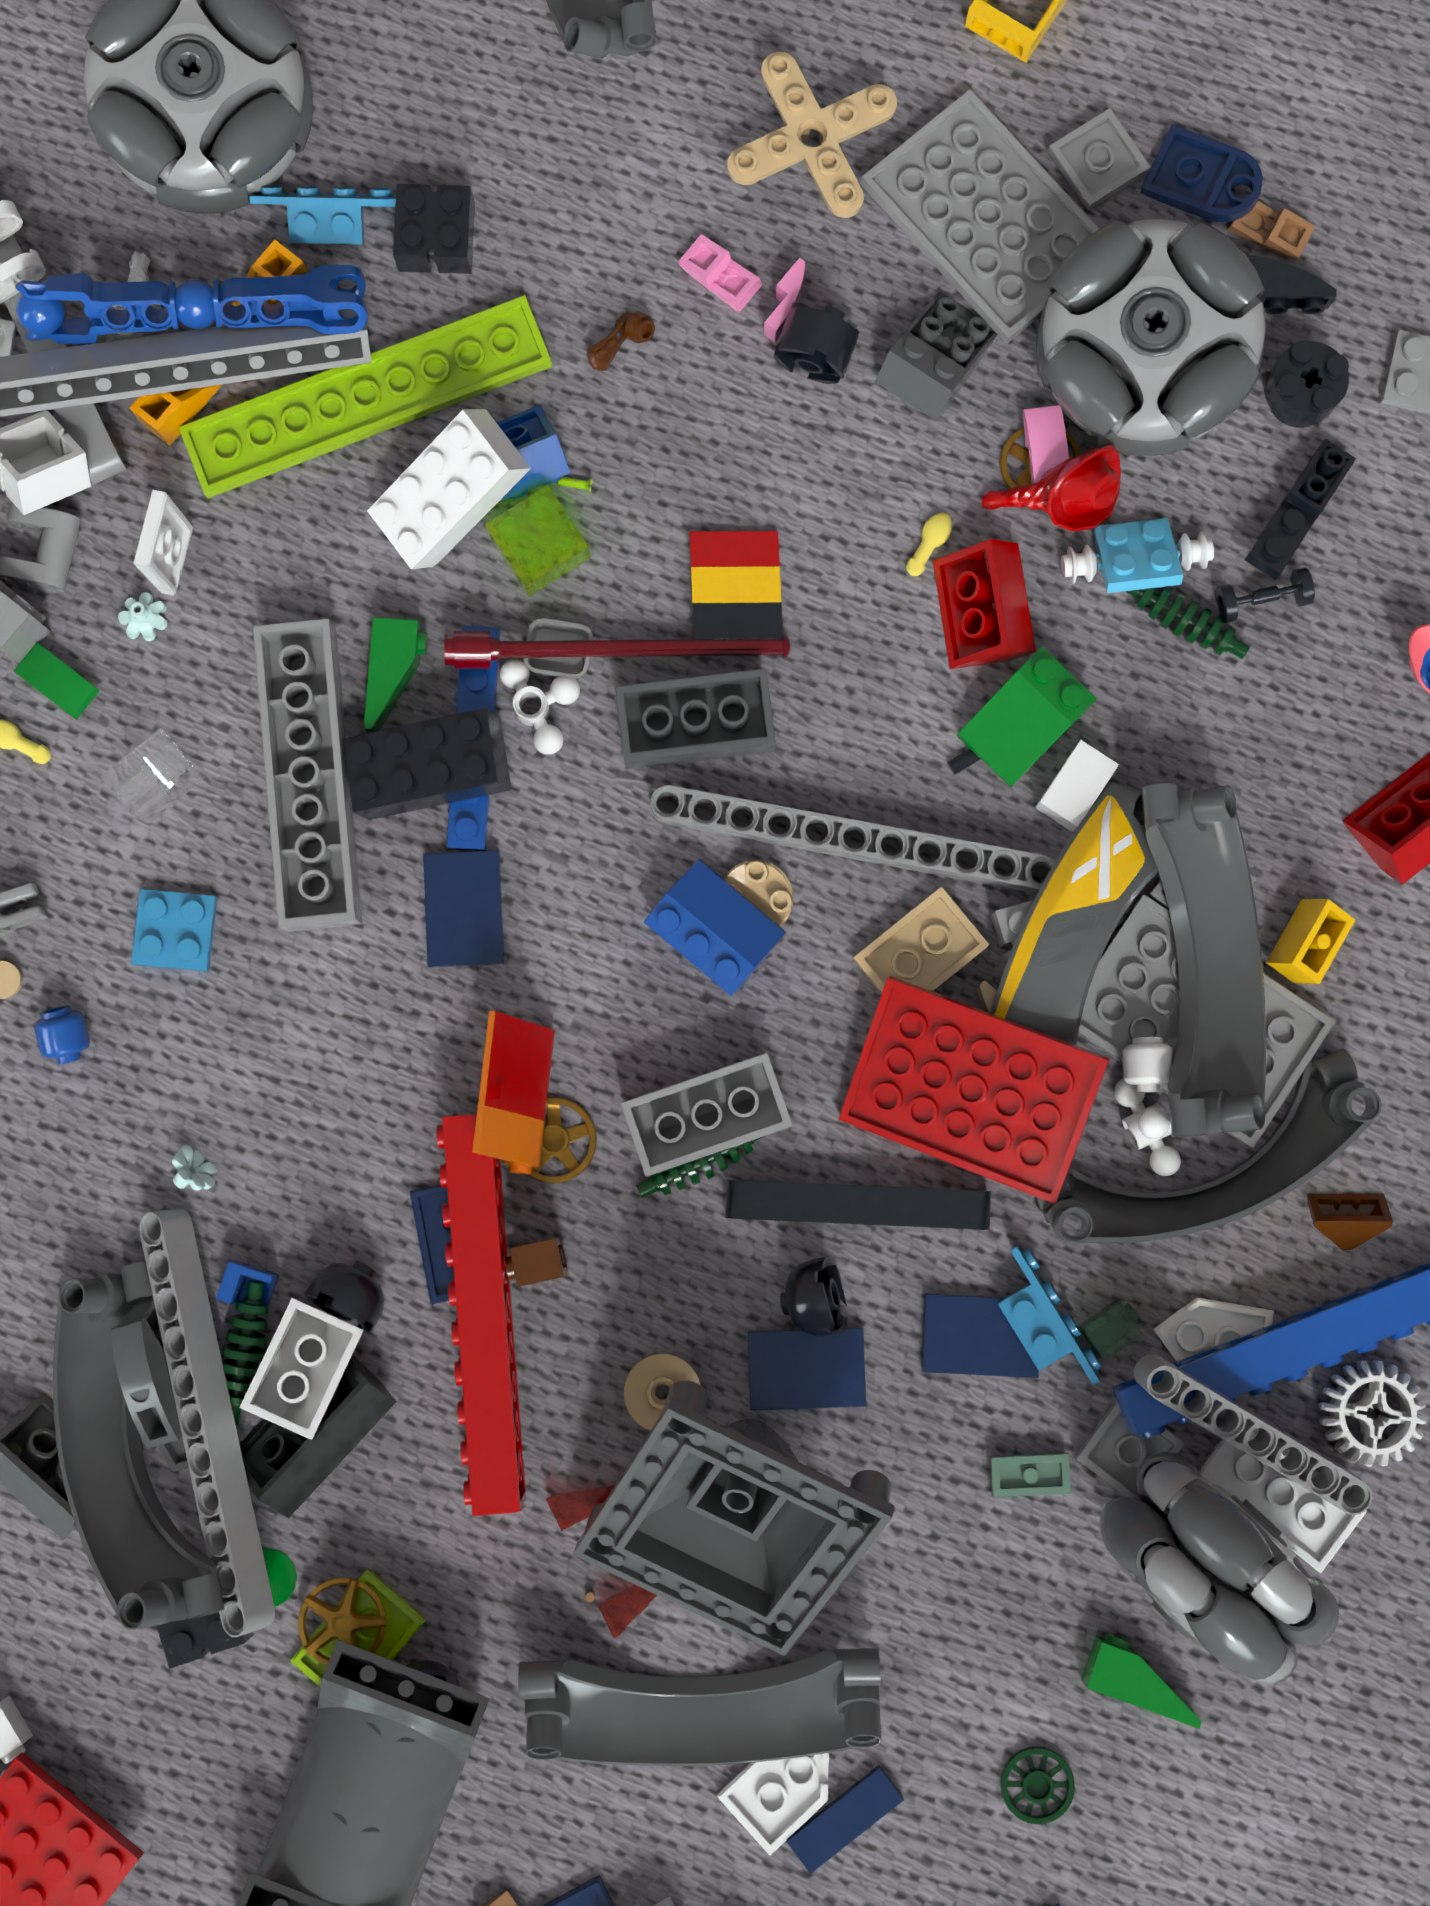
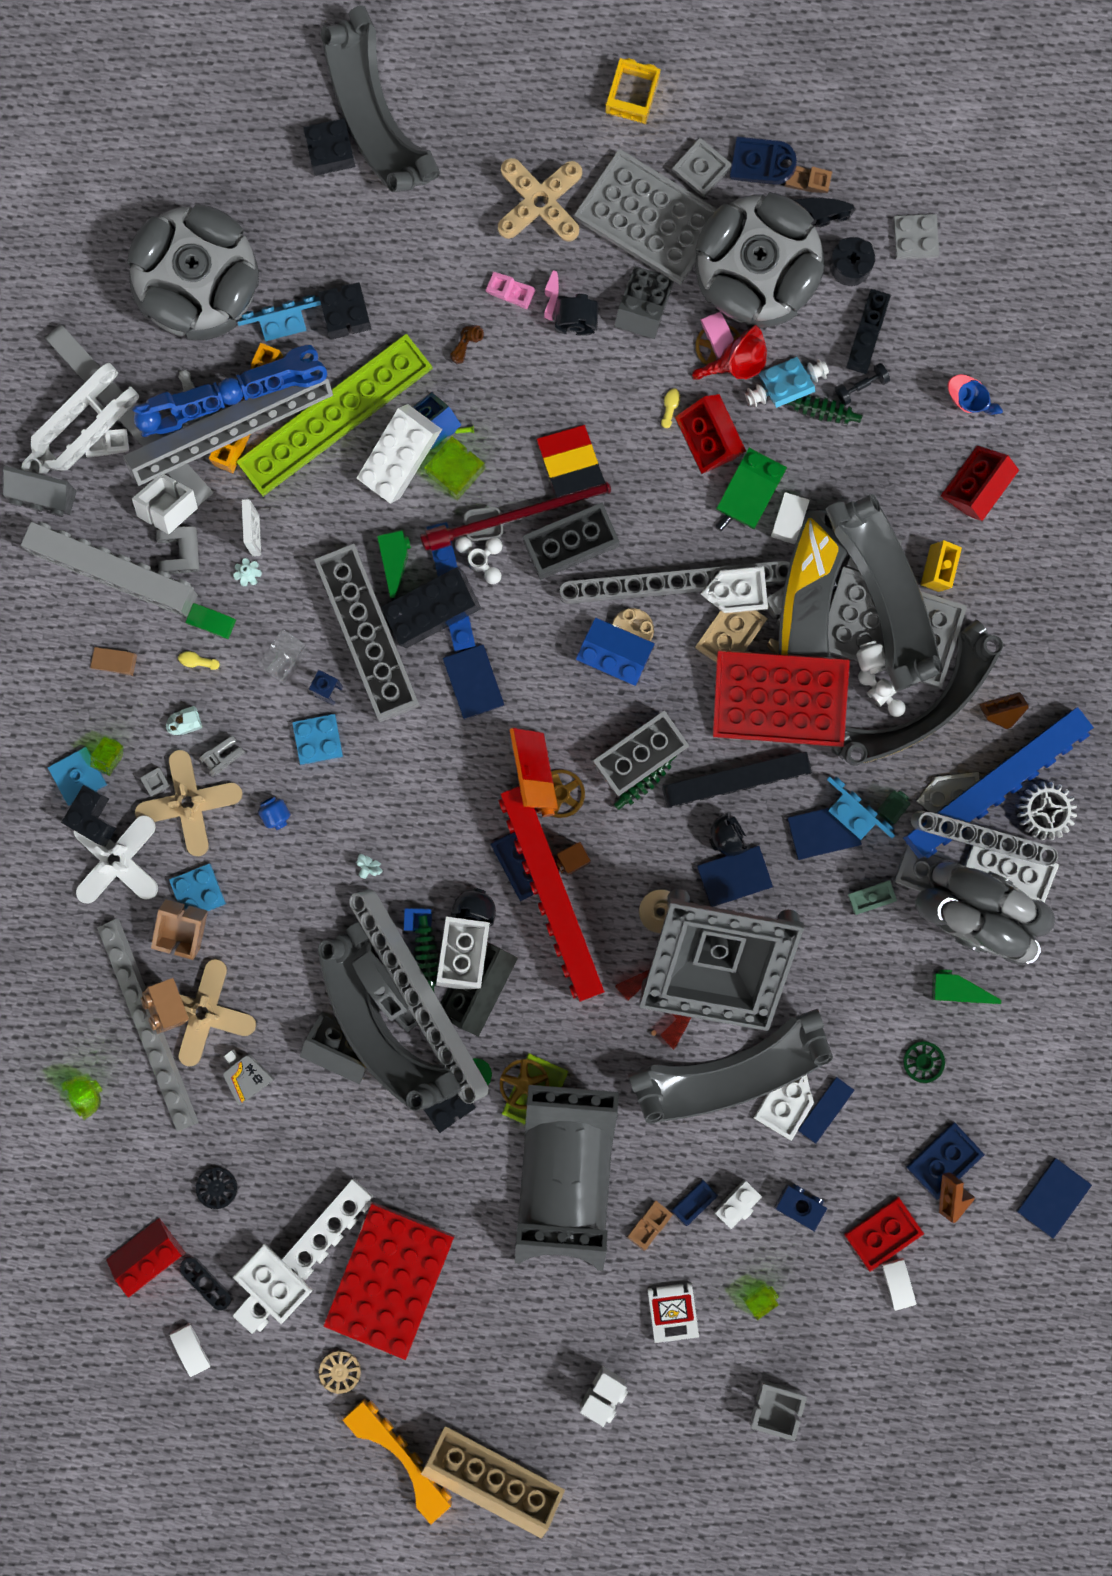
camera: 15 degrees left, 0 degrees up
(201, 842) = (323, 686): none -> dark blue window
(953, 883) = (738, 590): none -> white tile

